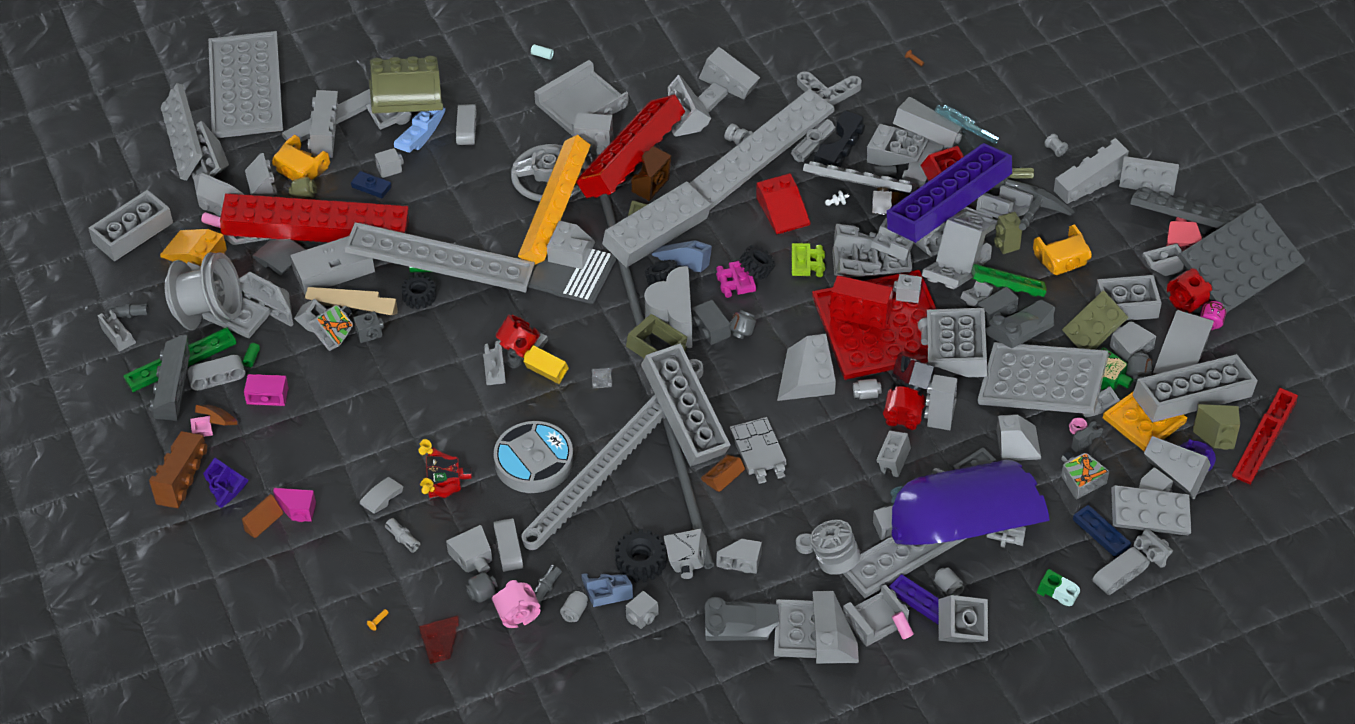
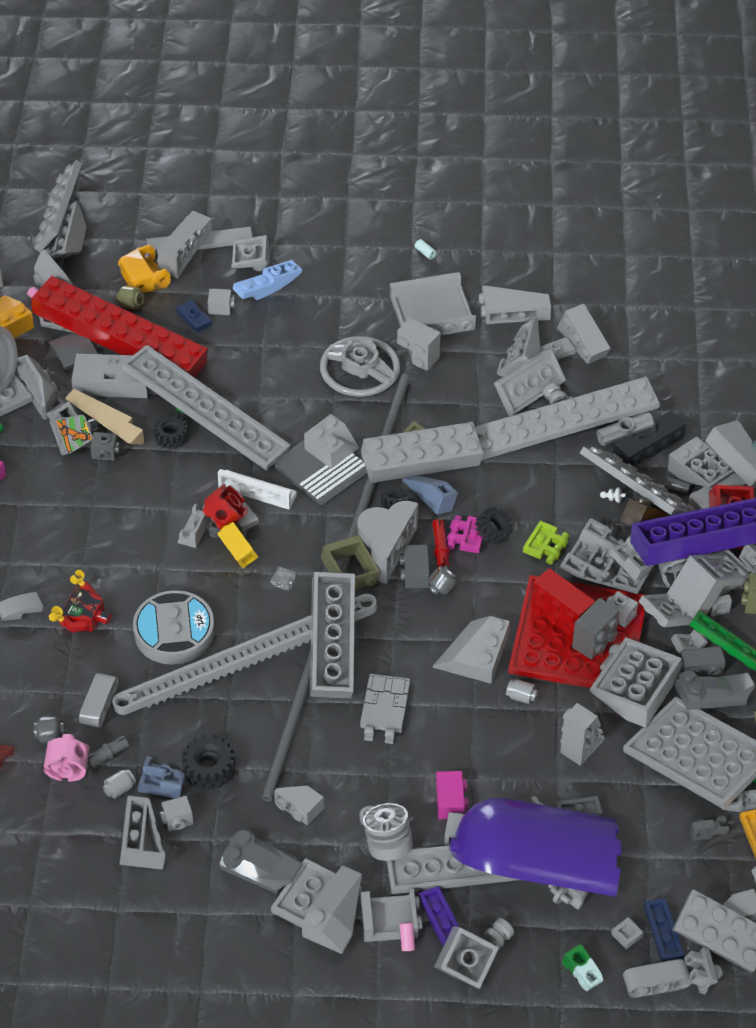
camera: 25 degrees right, 0 degrees up
(245, 84) = (142, 183): light grey plate -> none
(260, 178) = (97, 275): light grey slope -> none
(402, 535) = (14, 651): light grey pin -> none
(405, 85) = (273, 234): olive container -> none
(466, 124) = (312, 292): light grey beam -> none
(471, 550) = (63, 691): light grey torso -> none
(529, 311) = (258, 489): none -> white fence
(554, 199) = (341, 391): light orange brick -> none
(623, 642) = (140, 837): none -> light grey wedge
(629, 146) = (442, 369): red brick -> none
(651, 72) = (511, 305): none -> light grey slope
(653, 174) = (450, 404): reddish brown slope -> none
(686, 551) = (250, 776): light grey torso -> none
(709, 130) = (528, 381): none -> light grey tile
(723, 300) = (441, 550): none -> red pin
(723, 472) = (337, 715): dark orange slope -> none
(782, 203) = (556, 479): red slope -> none
(849, 85) = (666, 390): light grey beam -> none
(862, 496) = (450, 793): none -> dark pink brick
(894, 452) = (508, 764): light grey hinge -> none
(902, 311) = (596, 629): none -> dark grey brick
(904, 407) = (542, 724): red brick -> none
(912, 372) = (565, 692): arch -> none
(949, 582) = (479, 914): light grey brick -> none
(974, 587) = (498, 933): none -> light grey wheel
(1017, 438) = (638, 802): light grey slope -> none
(1075, 546) = (627, 933): none -> light grey plate
(1077, 424) = (707, 811): bright pink plate -> none
(1083, 474) = (680, 865): torso -> none

